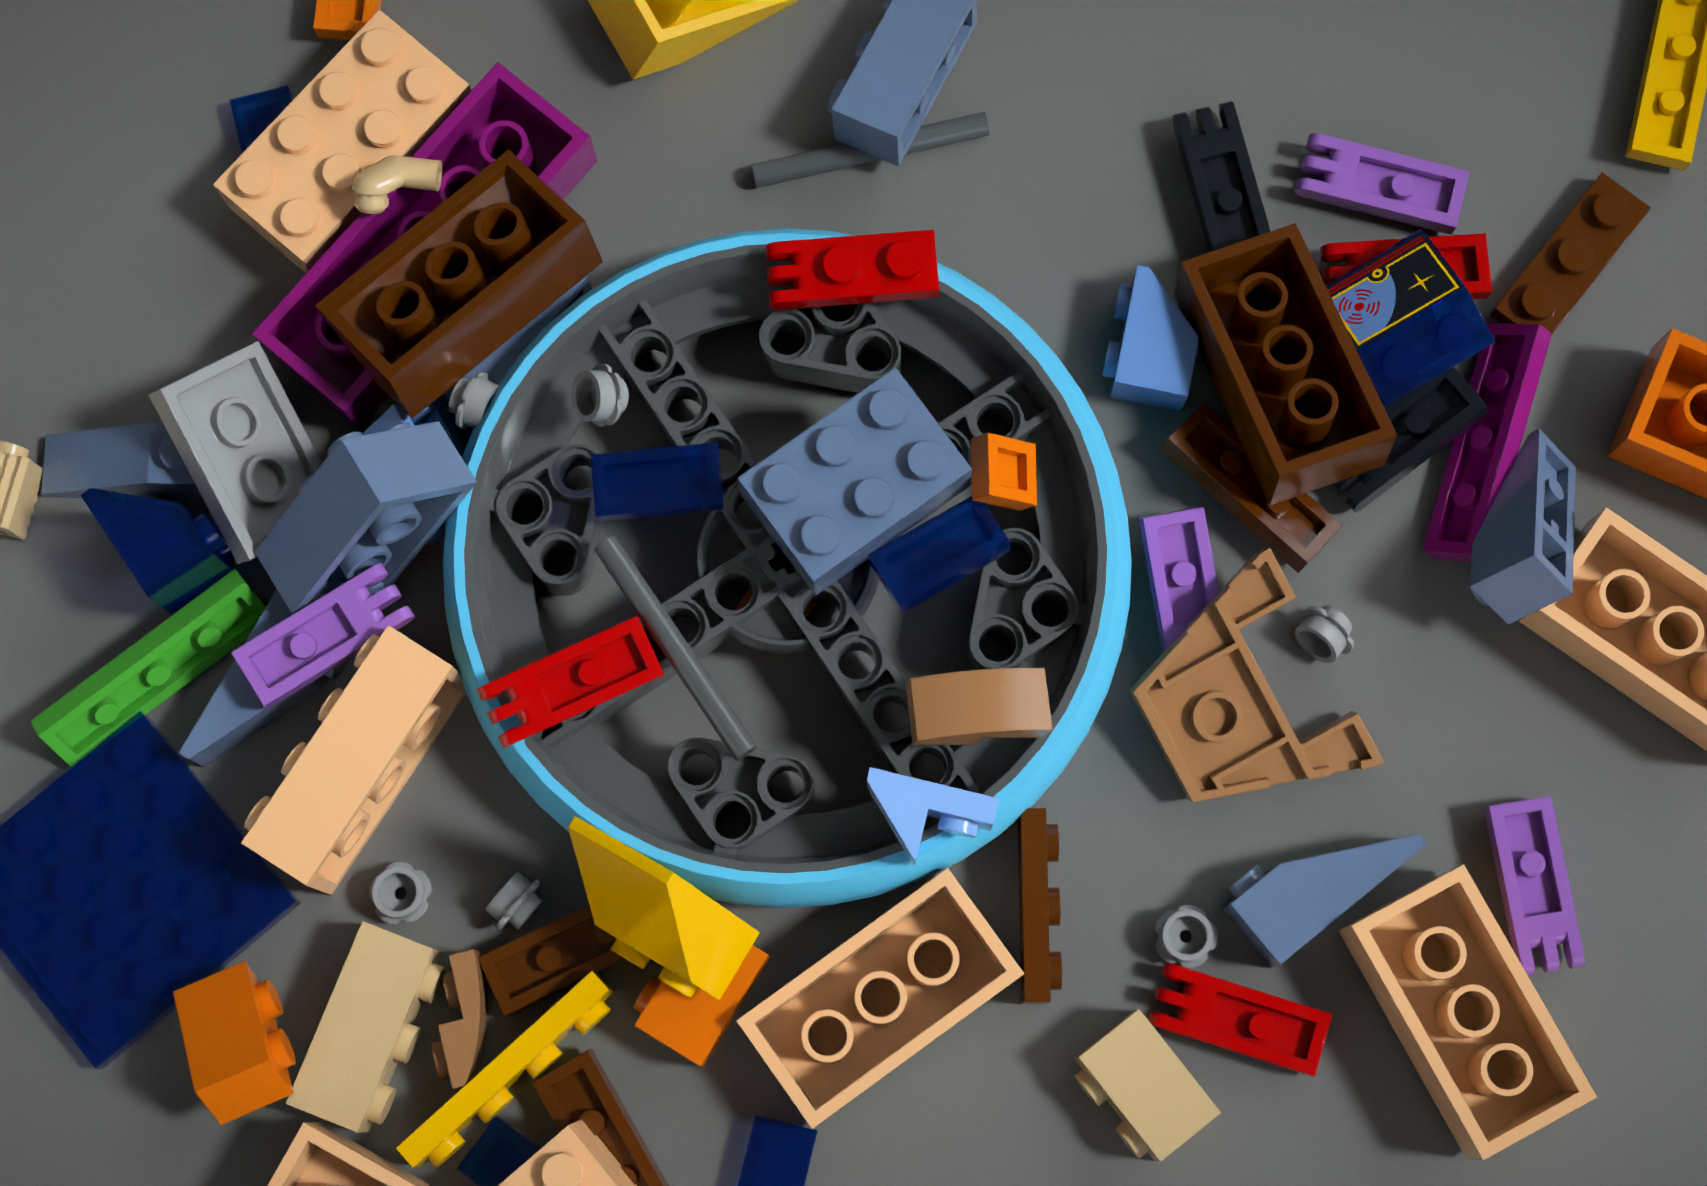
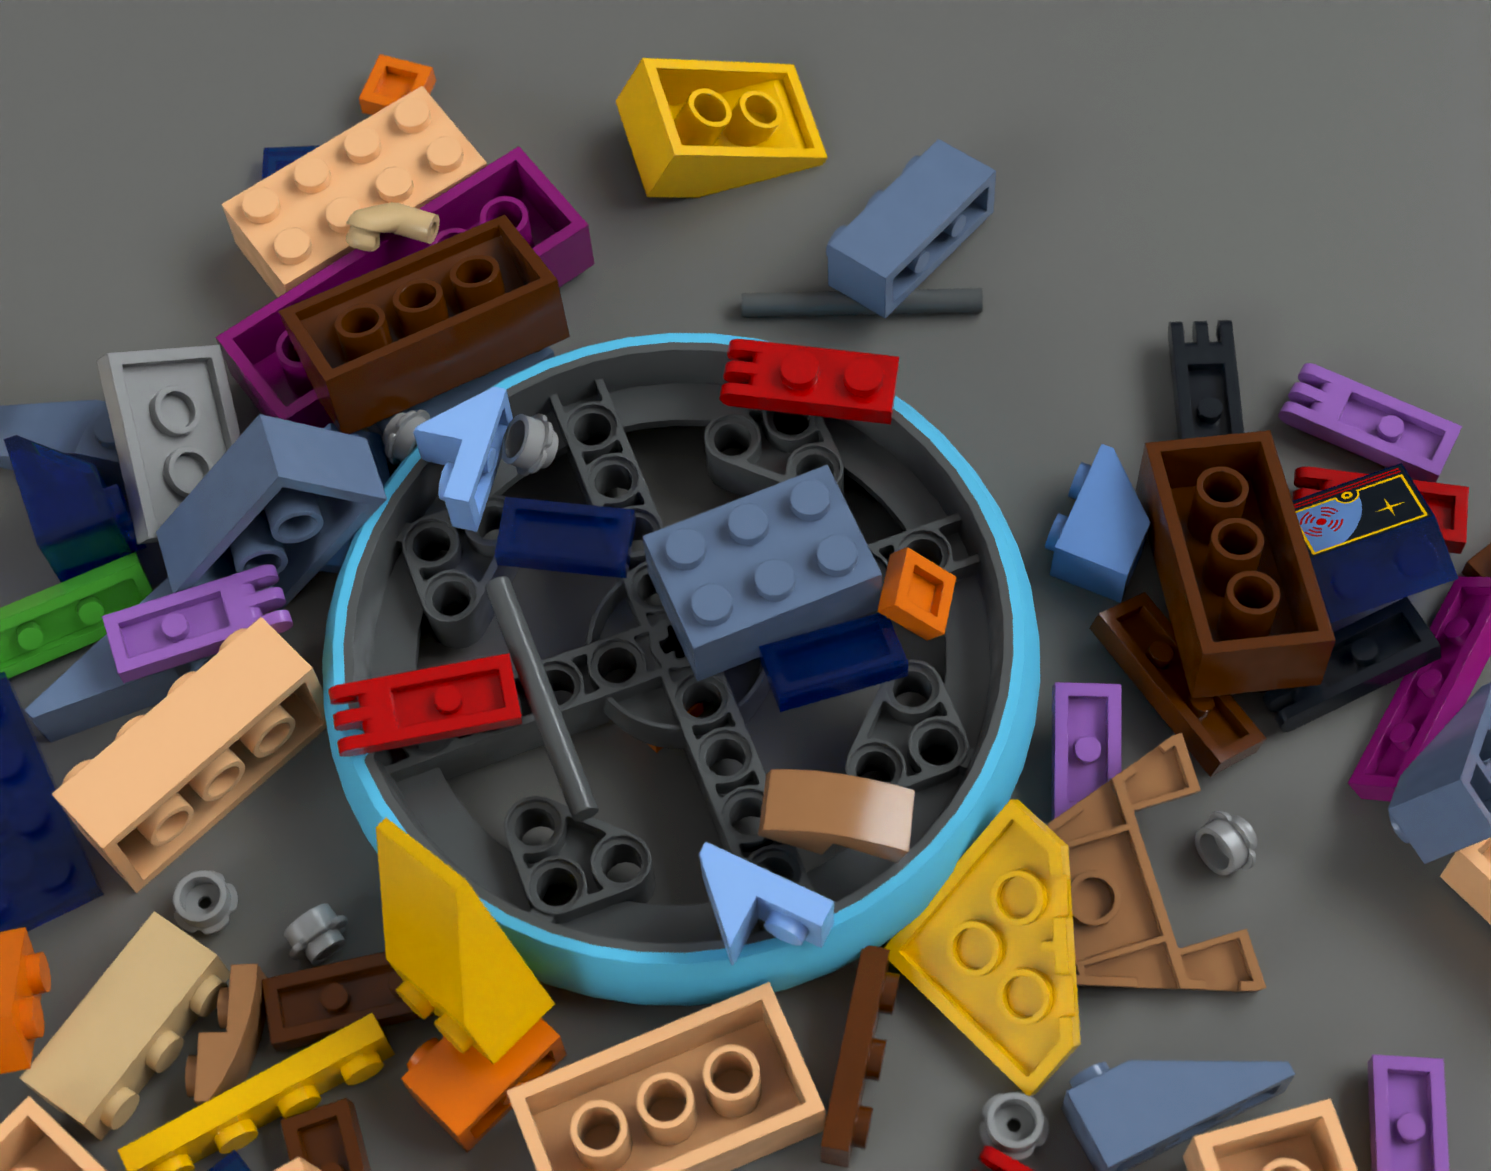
camera: 15 degrees right, 15 degrees down
(543, 404) = (469, 446): none -> light blue slope
(1146, 783) = (1002, 948): none -> yellow plate

